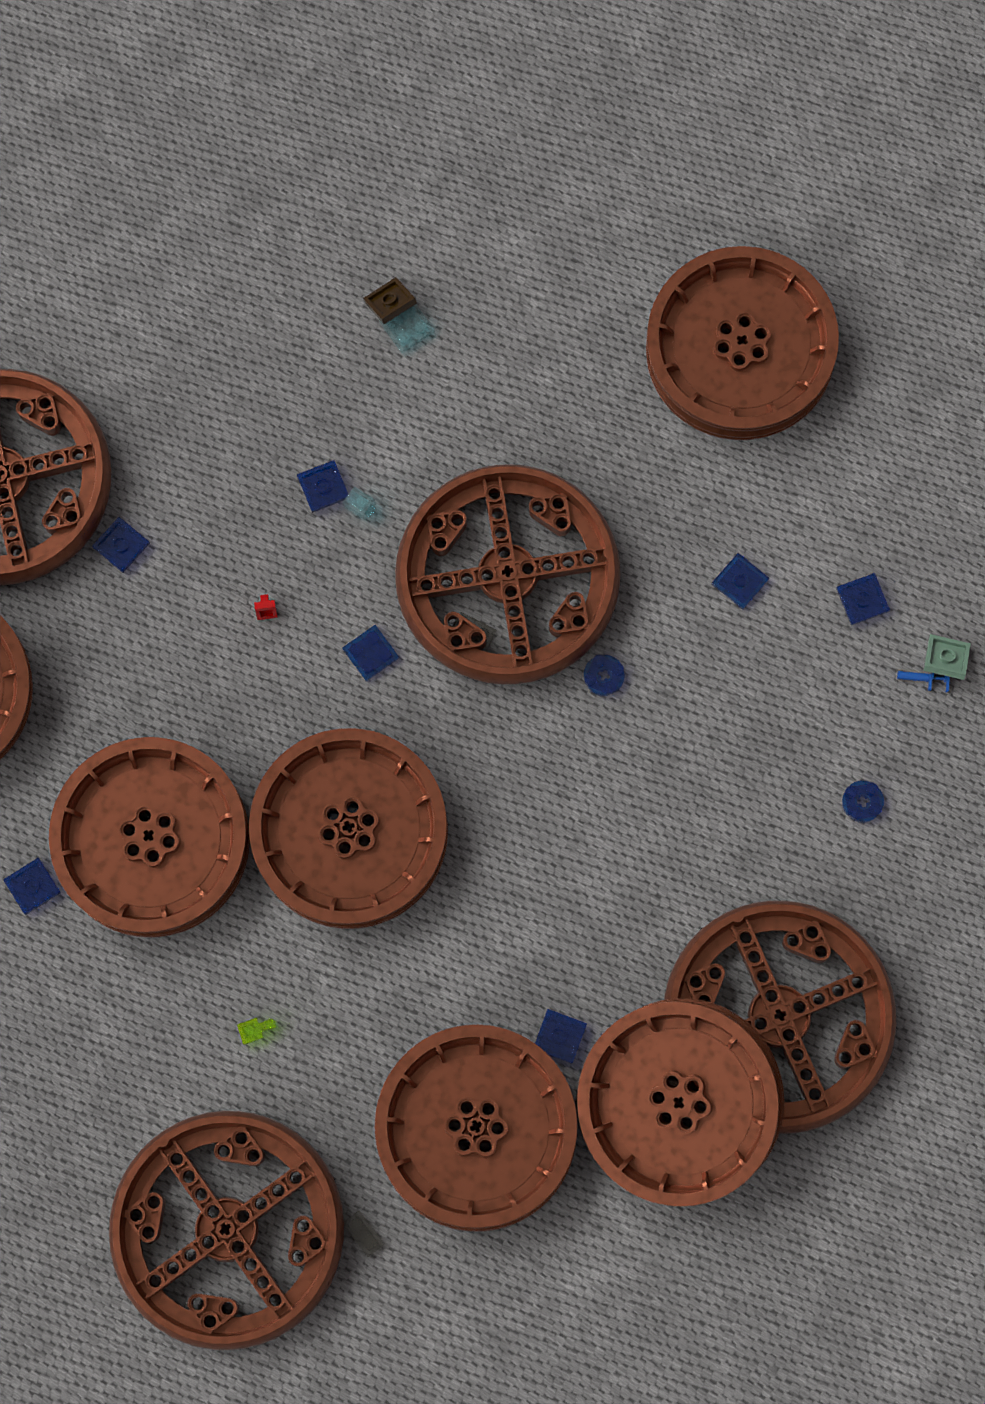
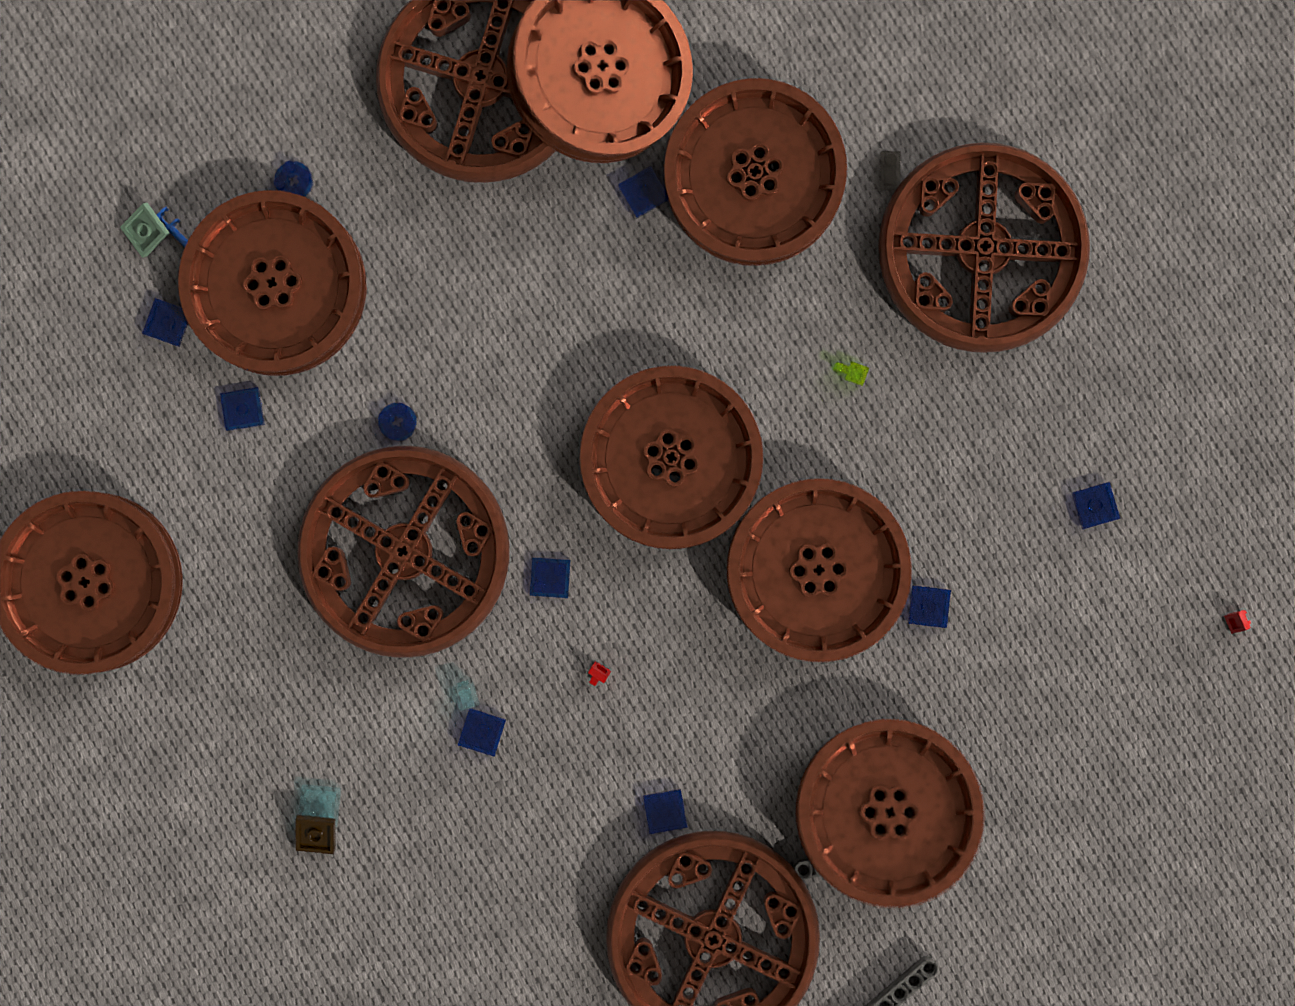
camera: 145 degrees left, 10 degrees up
(816, 645) = (225, 261): none -> copper wheel

